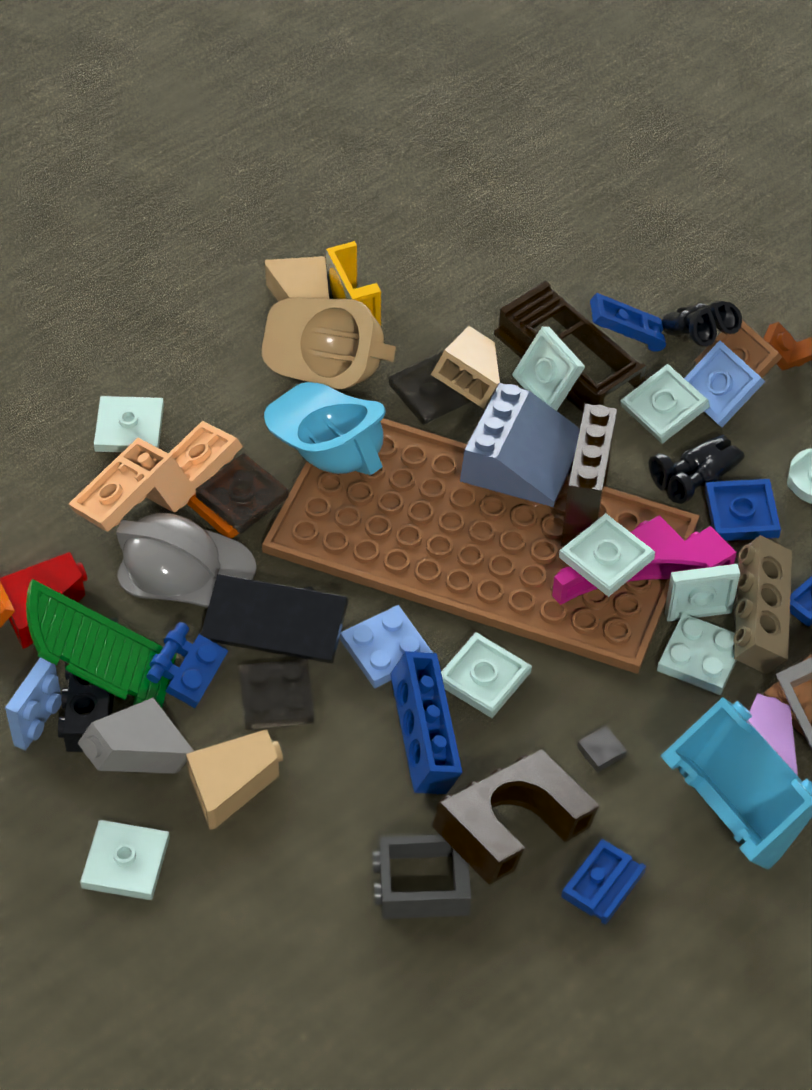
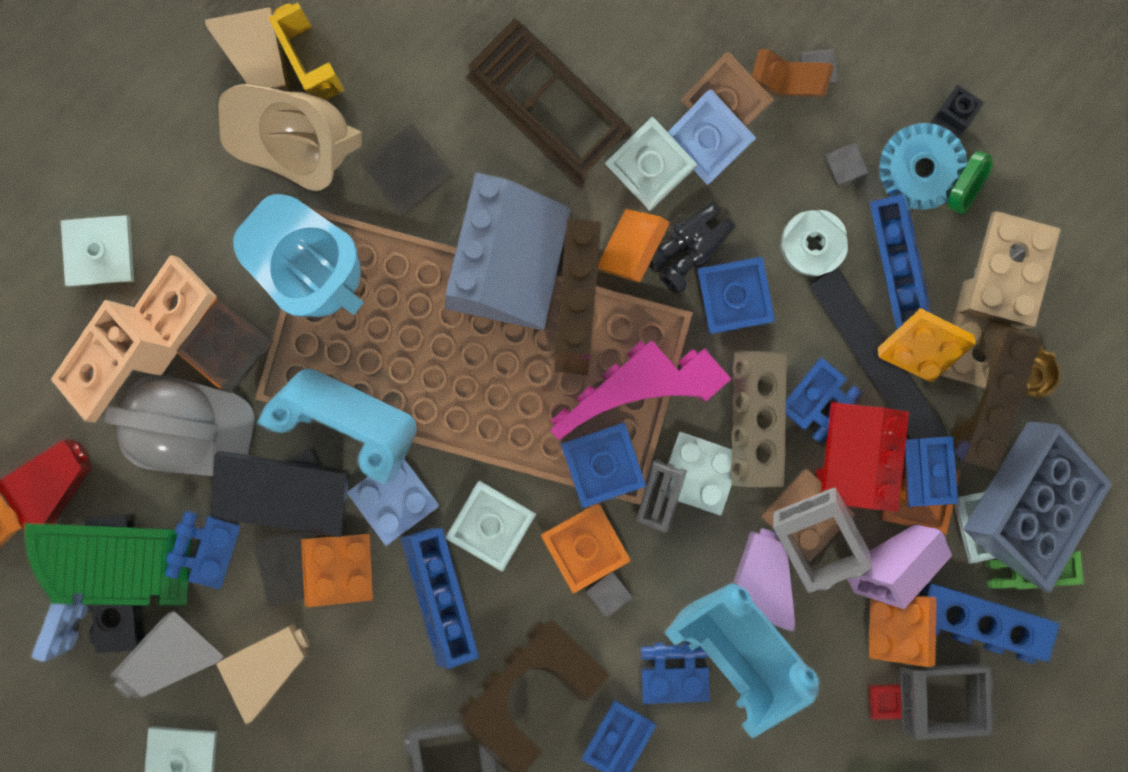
camera: 10 degrees left, 35 degrees up
(310, 533) = (320, 397): none -> medium azure windscreen
(322, 692) = (336, 570): none -> orange plate
(470, 366) = (443, 149): tan slope -> none
(548, 368) = (526, 143): light aqua plate -> none
(580, 702) = (585, 547): none -> orange plate
(603, 622) = (603, 465): none -> blue plate
(607, 554) = (601, 406): light aqua plate -> none
(628, 321) = (606, 64): blue plate -> none
(644, 453) = (633, 245): none -> orange tile
(668, 837) = (674, 683): none -> blue plate
(673, 663) = (669, 470): none -> flat silver tile
(702, 592) = (698, 417): light aqua plate -> none
(703, 321) = (680, 49): black piece -> none

